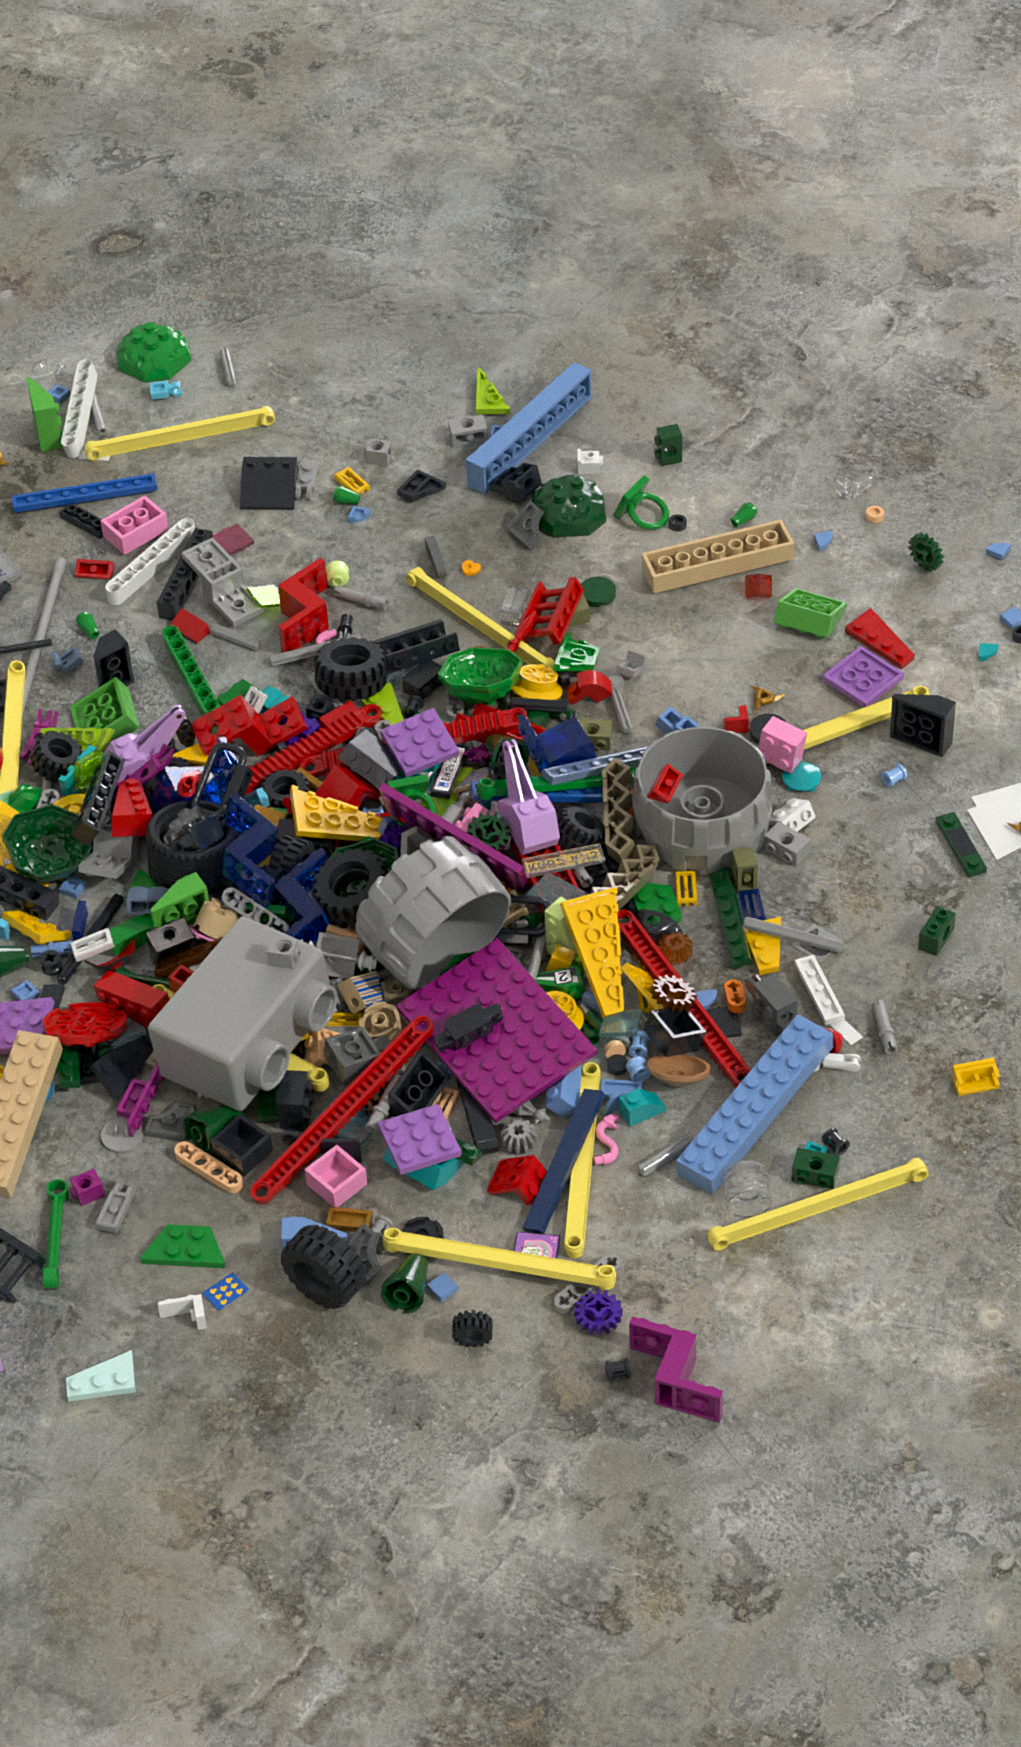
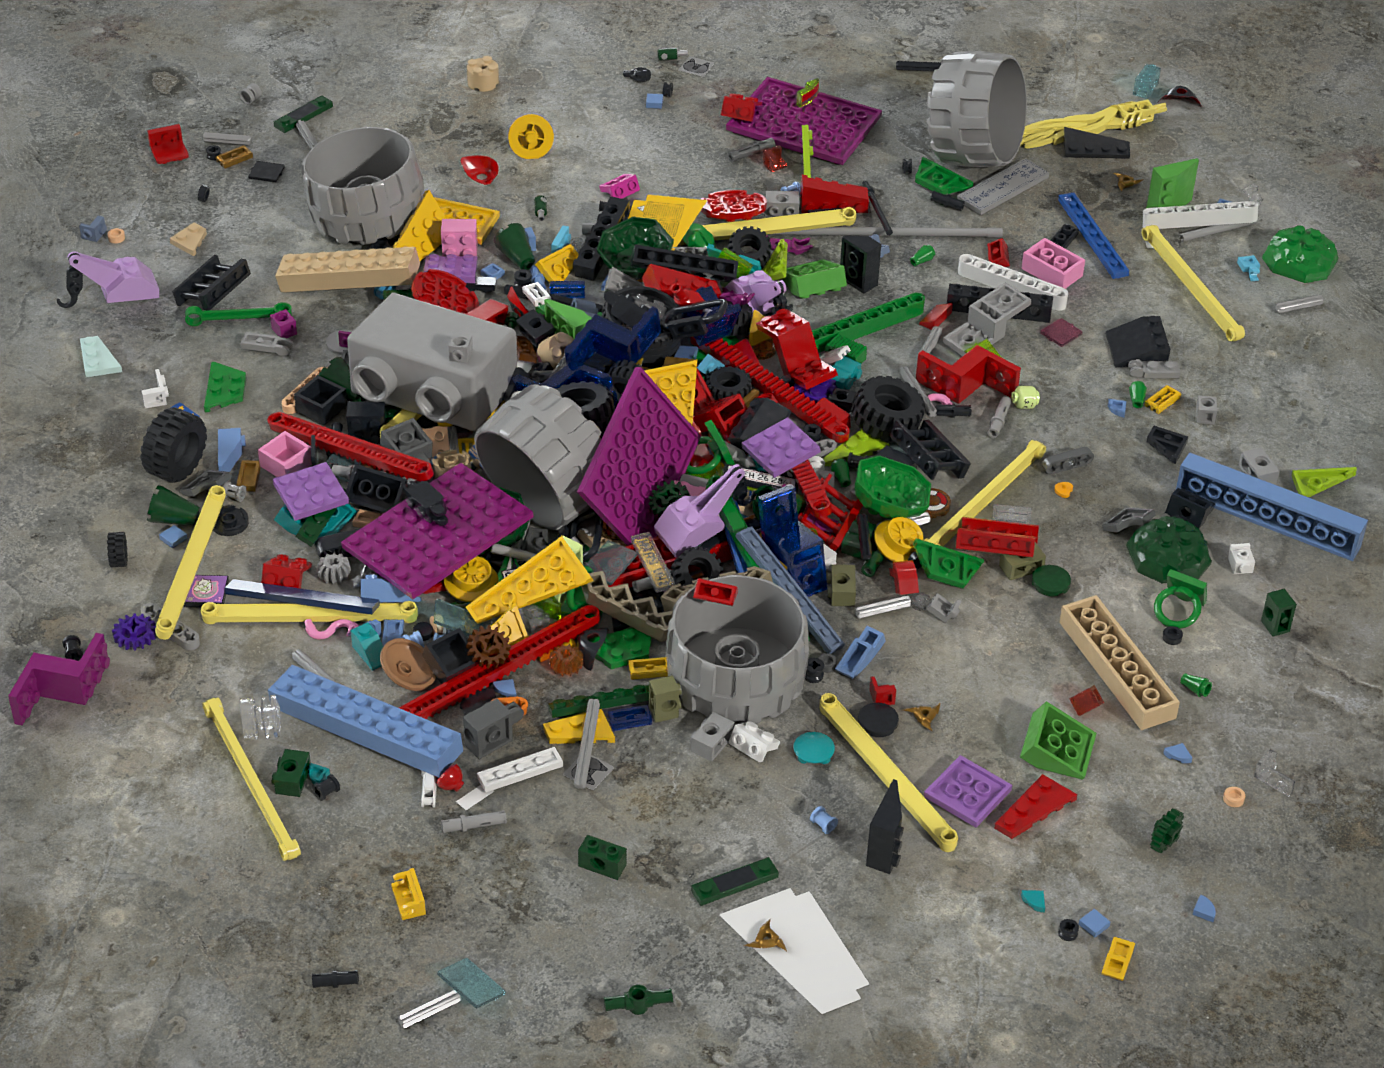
camera: 80 degrees right, 5 degrees down
(524, 629) = (947, 515): red piece -> none
(782, 744) = (831, 711): bright pink piece -> none

